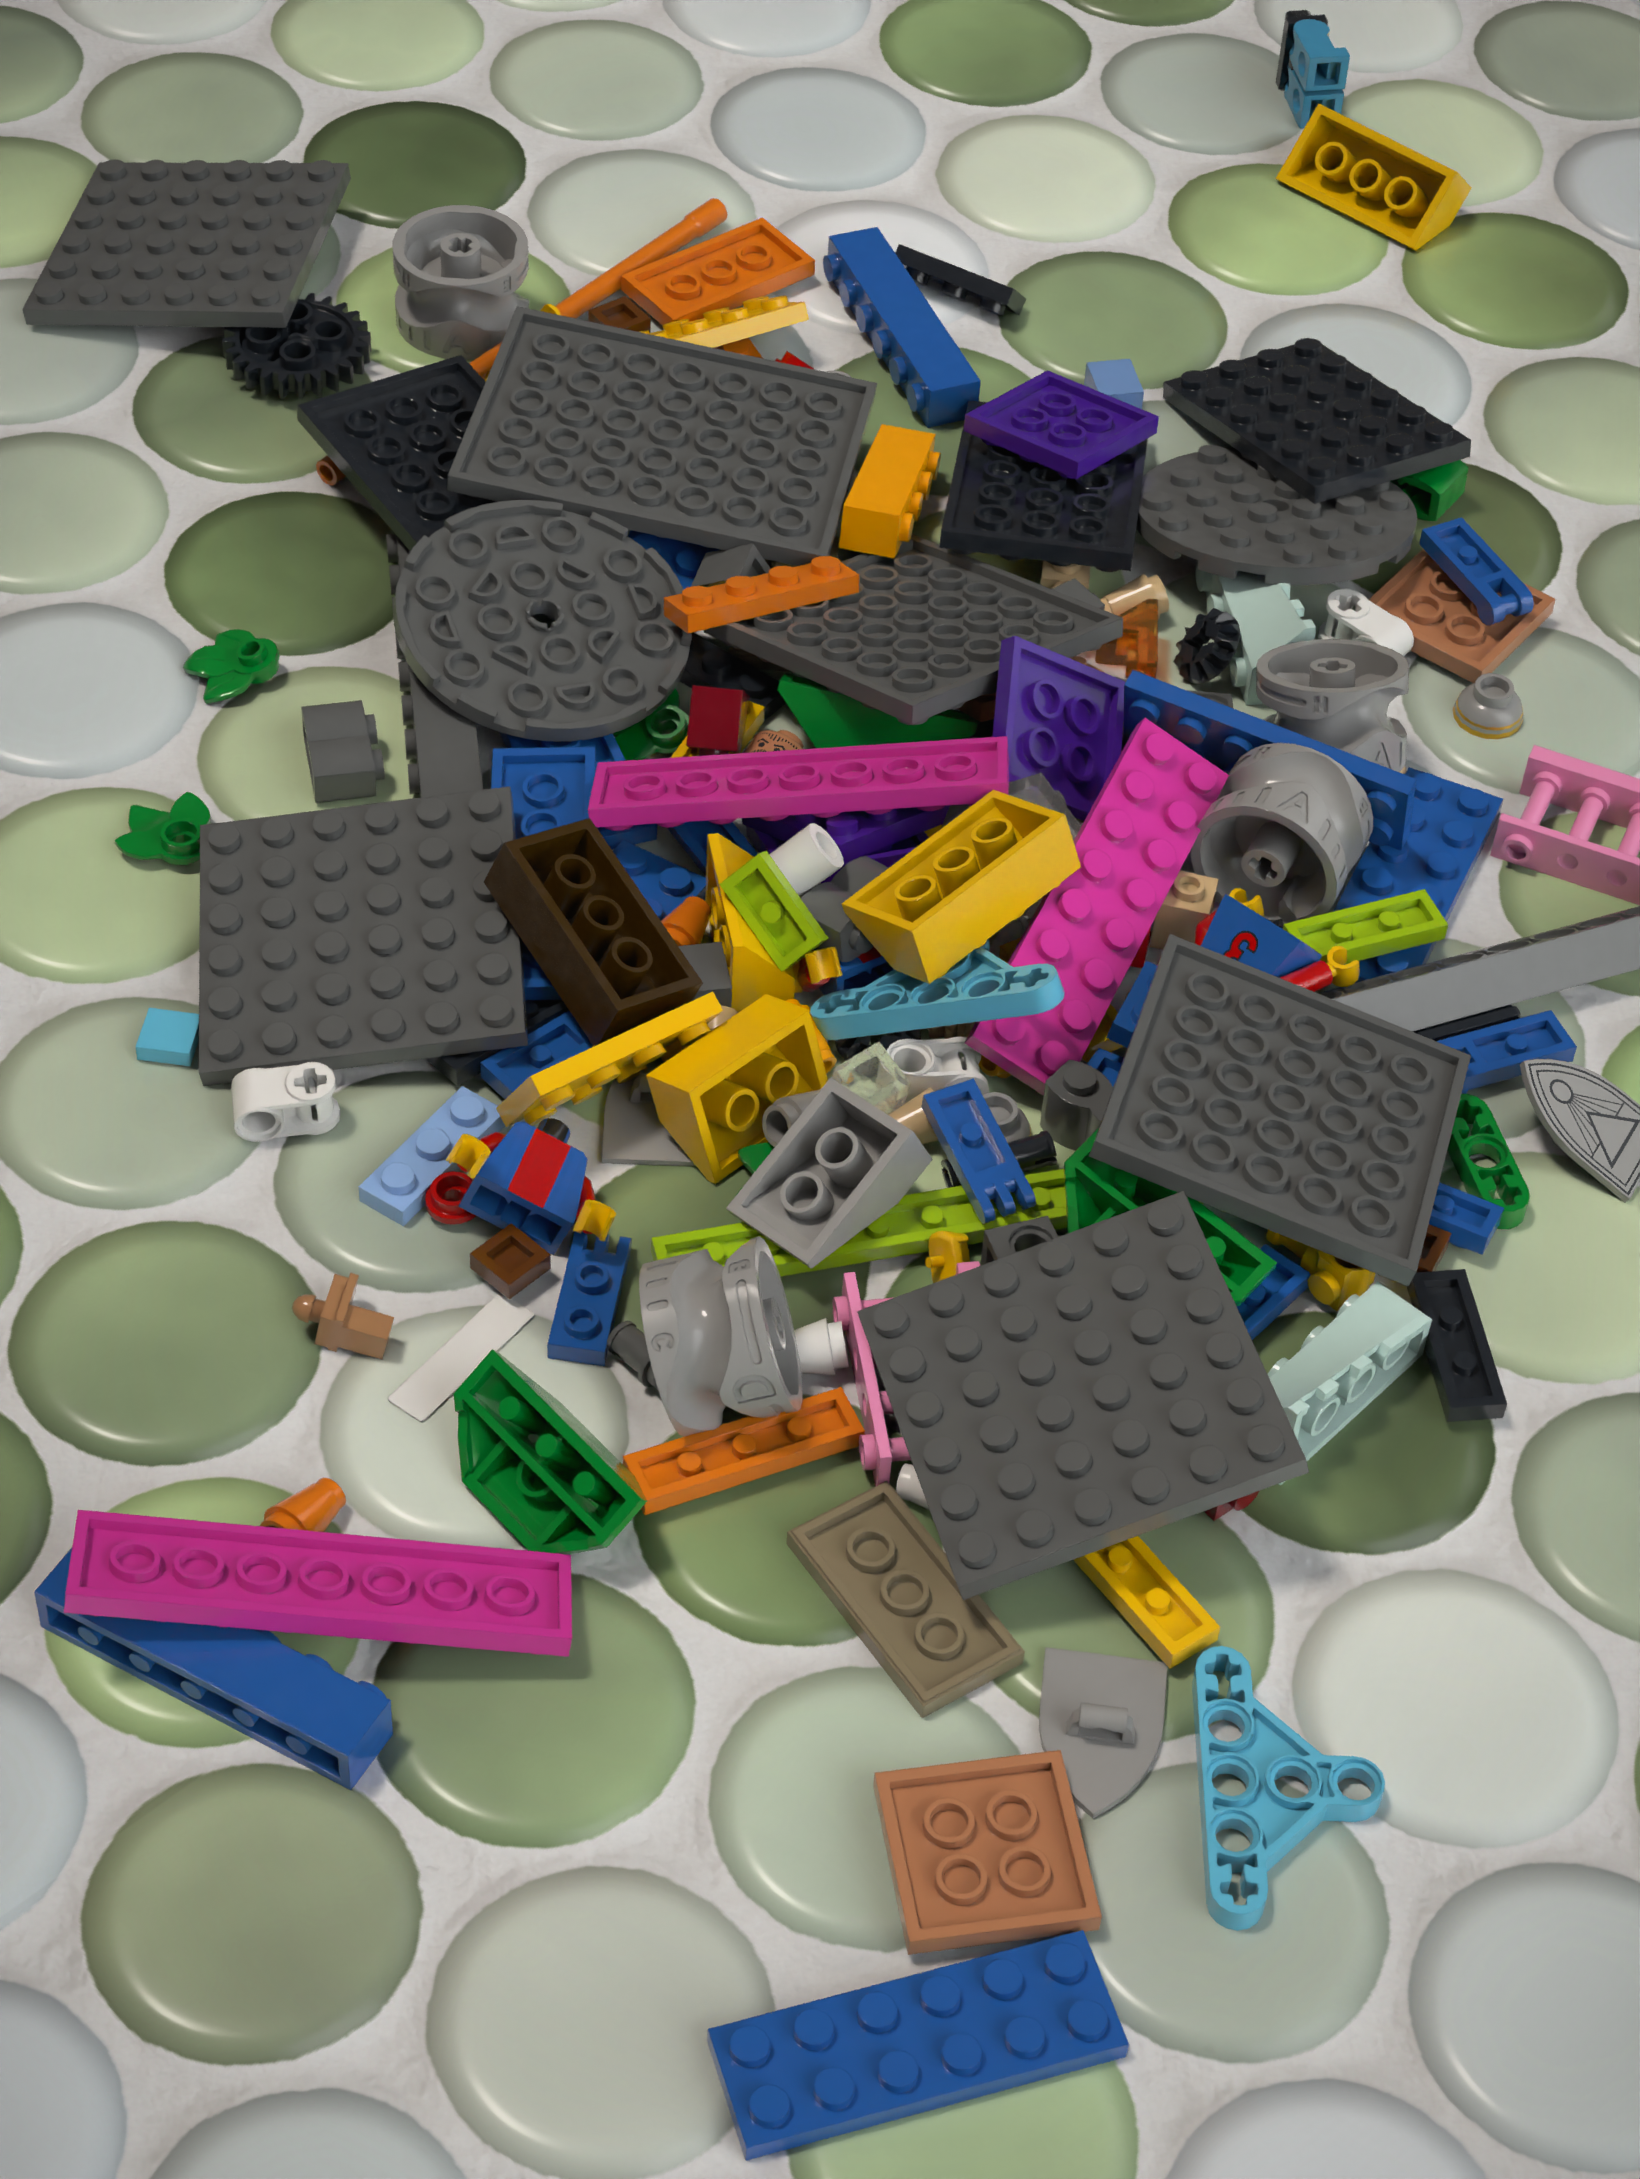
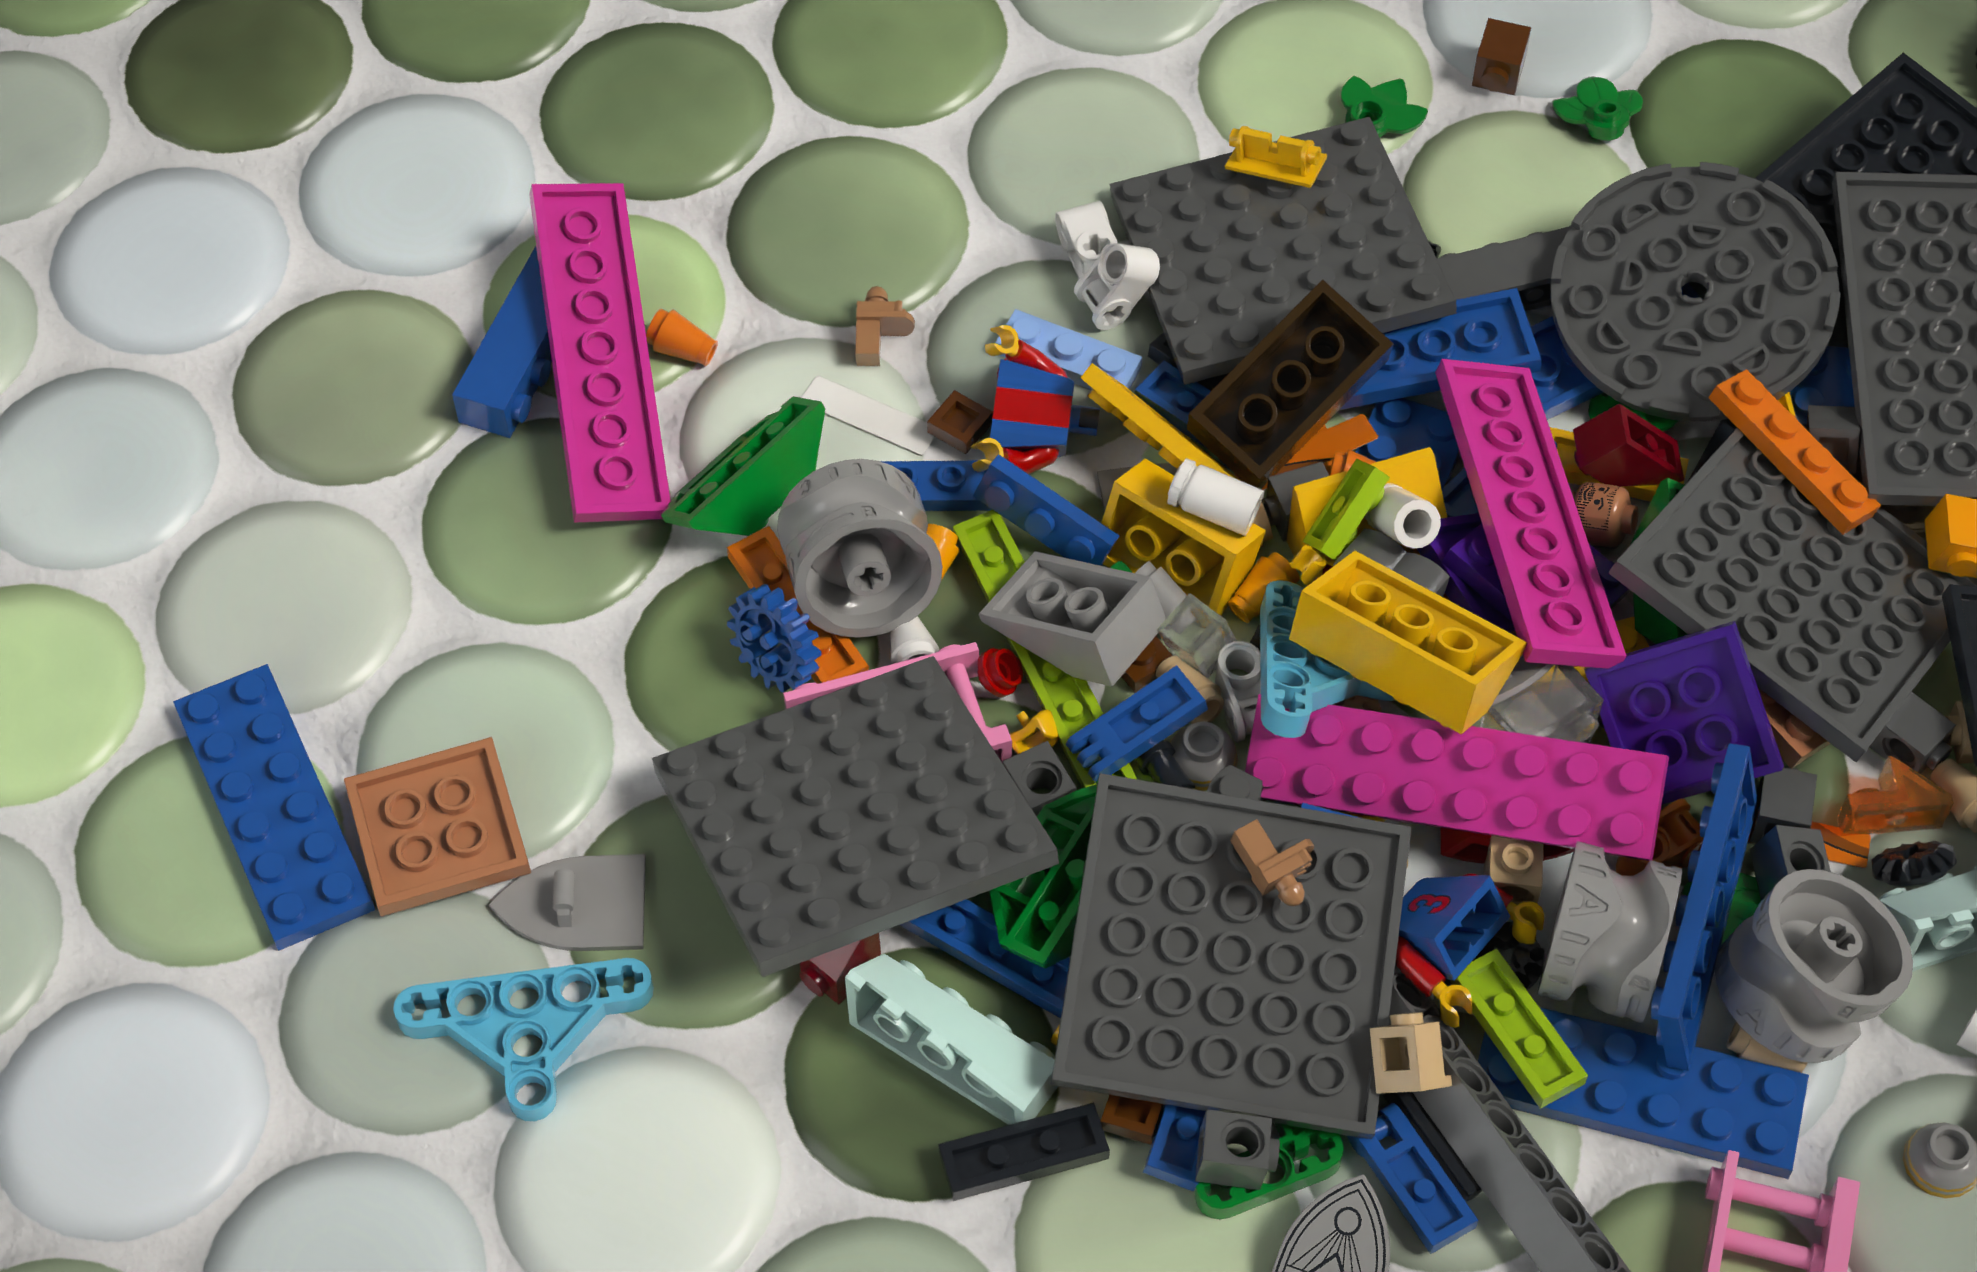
camera: 85 degrees right, 10 degrees up
(140, 716) = (1501, 56): none -> reddish brown brick
(168, 1037) = (1148, 155): medium azure tile -> none
(253, 897) = (1285, 161): none -> yellow hinge
(340, 751) = (1508, 197): dark grey brick -> none
(368, 1089) = (1117, 280): none -> white piece
(680, 1190) = (1044, 513): none -> blue plate
(738, 1006) = (1215, 496): none -> white piece
(825, 1433) = (763, 611): none -> blue gear
(870, 1275) = (999, 671): none -> red plate
(904, 1599) = (621, 769): dark tan tile -> none
(1151, 1599) = (684, 929): yellow plate -> none
(1215, 1027) = (1268, 867): none -> medium nougat piece
(1405, 998) = (1408, 1055): none -> tan brick
(1485, 1159) = (1219, 1165): none -> dark grey brick

